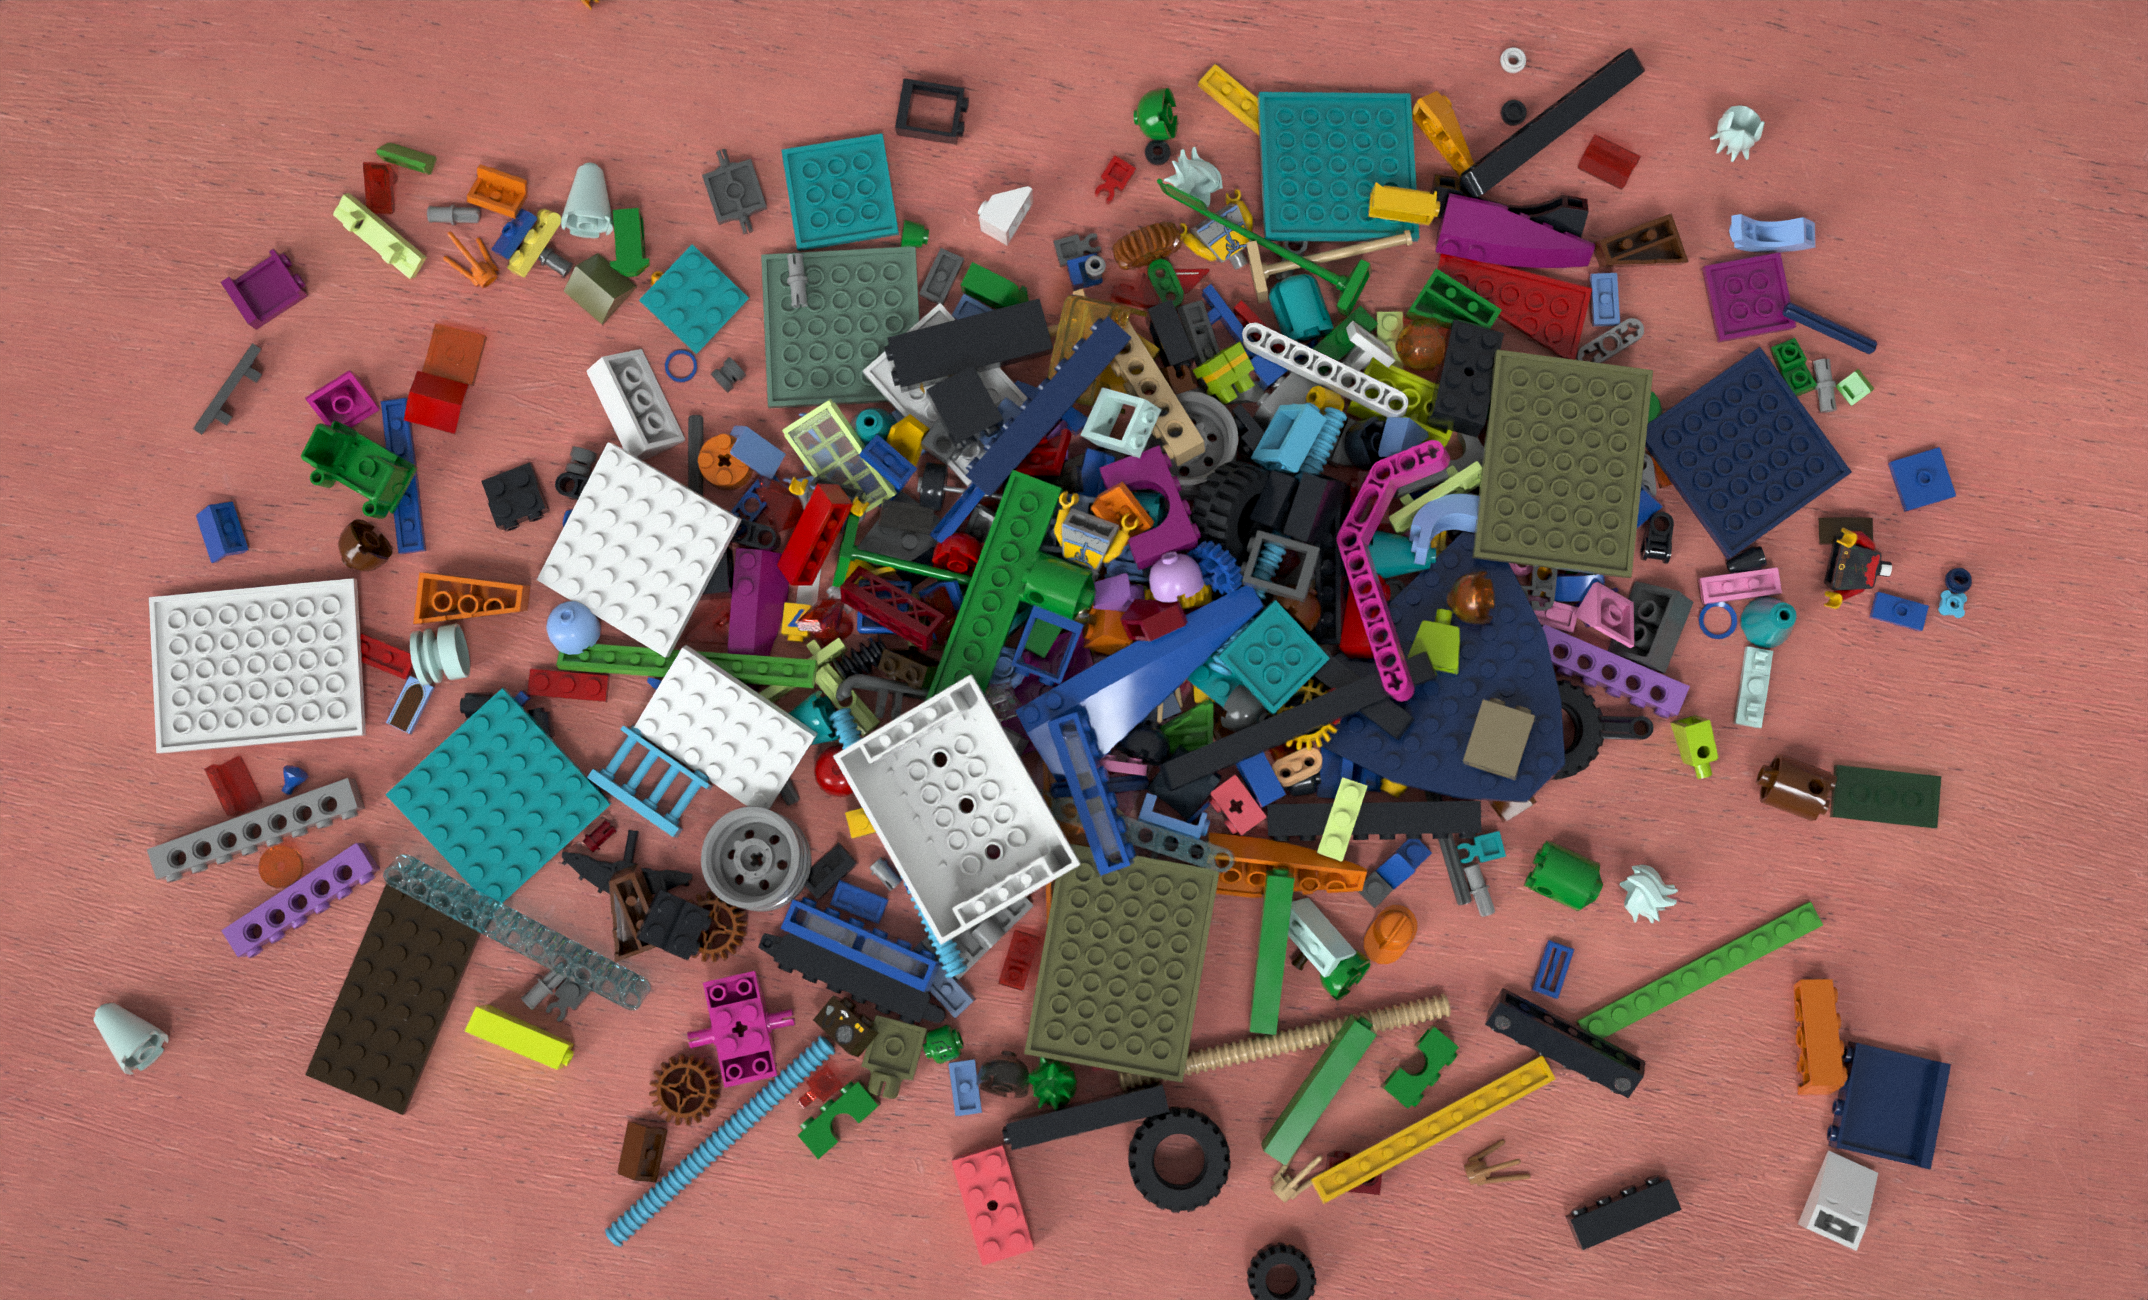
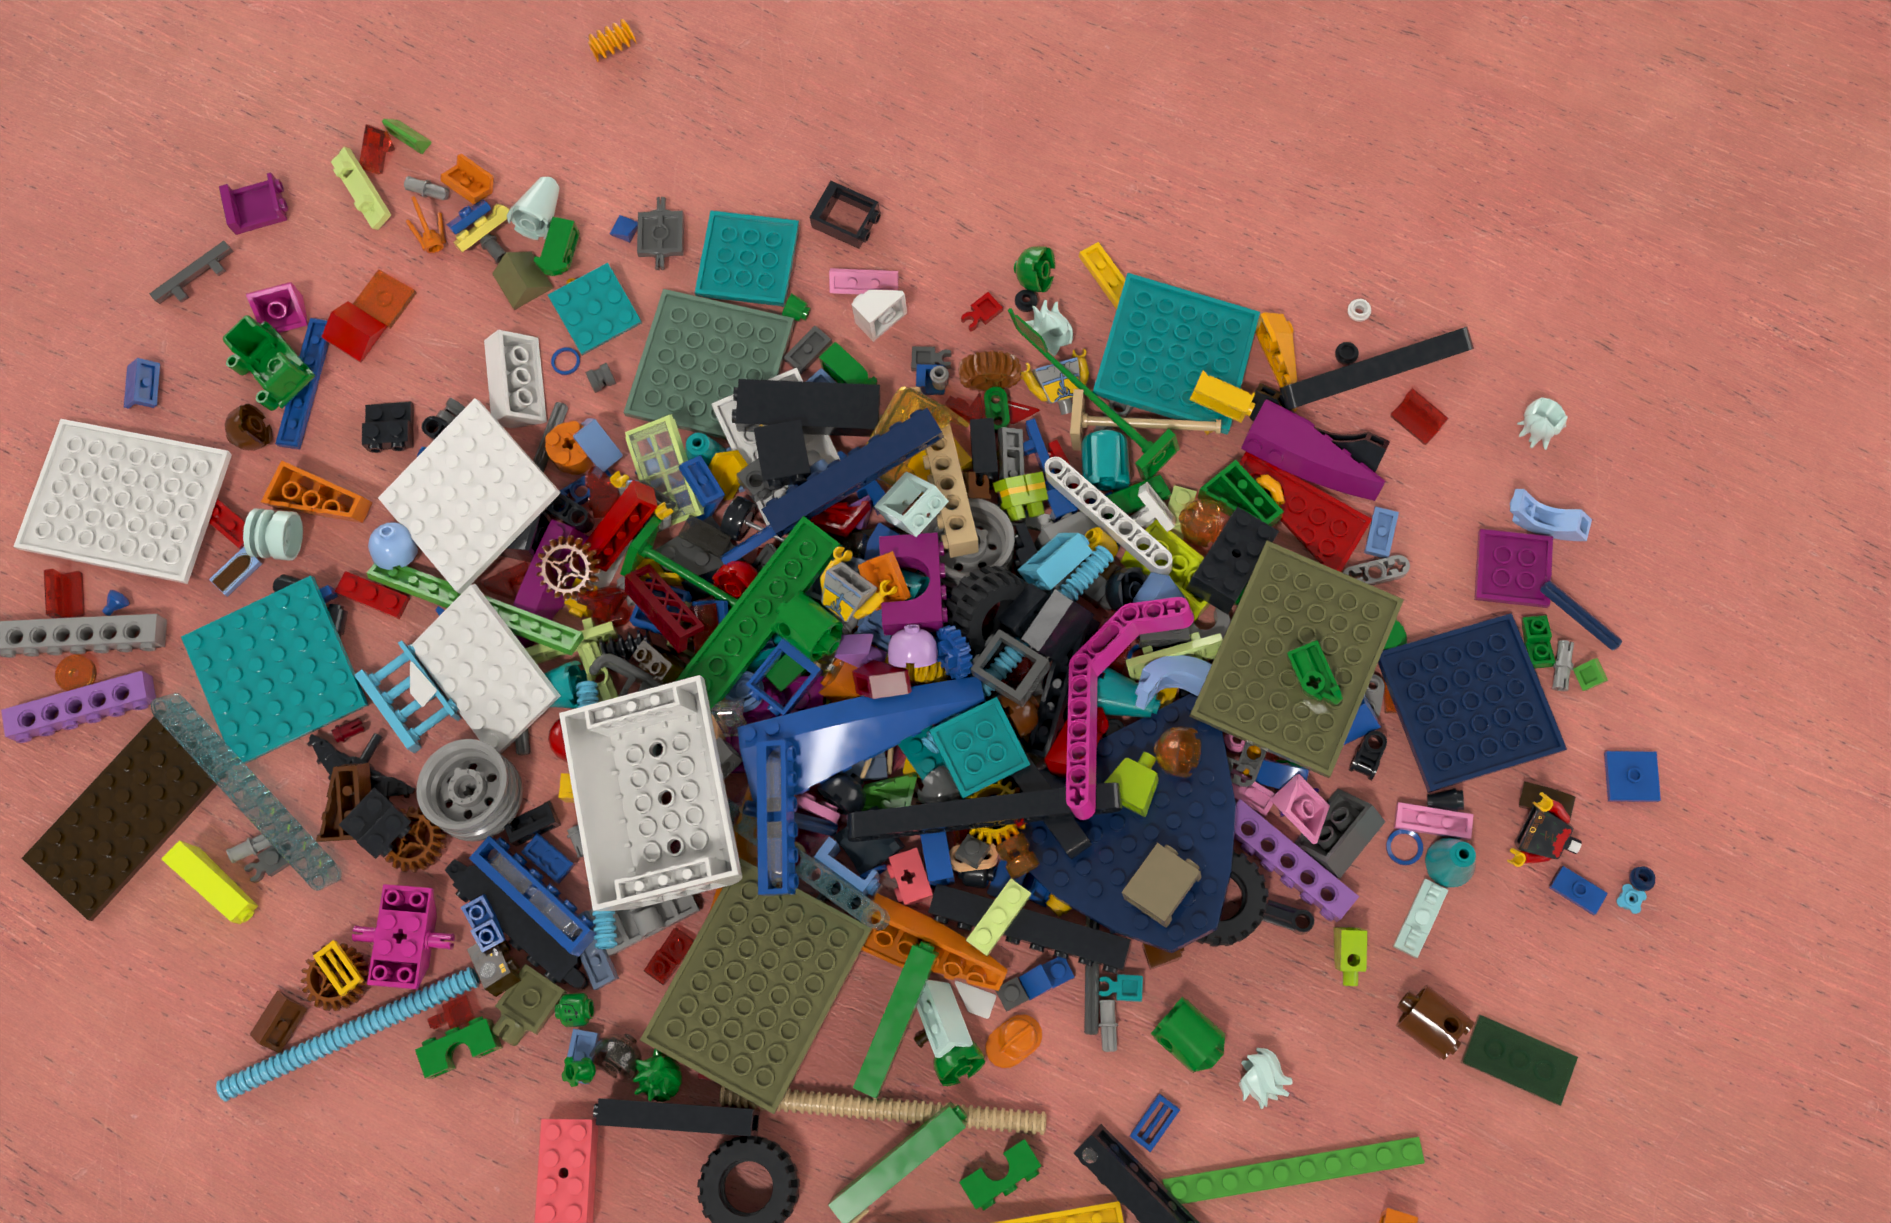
camera: 25 degrees right, 10 degrees down
(661, 768) = (420, 686): none -> white sticker
(691, 196) = (624, 228): none -> blue slope
(707, 1092) = (351, 984): none -> yellow tile
(786, 596) = (550, 561): none -> dark orange gear
(797, 280) = (684, 316): light grey pin -> none
(821, 989) = (484, 923): none -> blue slope
(971, 1103) = (578, 1071): none -> green brick
(976, 182) = (860, 281): none -> bright pink plate
(1296, 762) = (972, 851): none -> dark grey plate
(1340, 906) = (976, 1000): none -> white sticker
(1349, 760) = (1021, 864): none -> clear orange wheel
(1481, 284) = (1273, 486): none -> light orange arm
(1582, 467) = (1310, 663): none -> green piece
(1644, 245) = (1428, 495): reddish brown wedge -> none

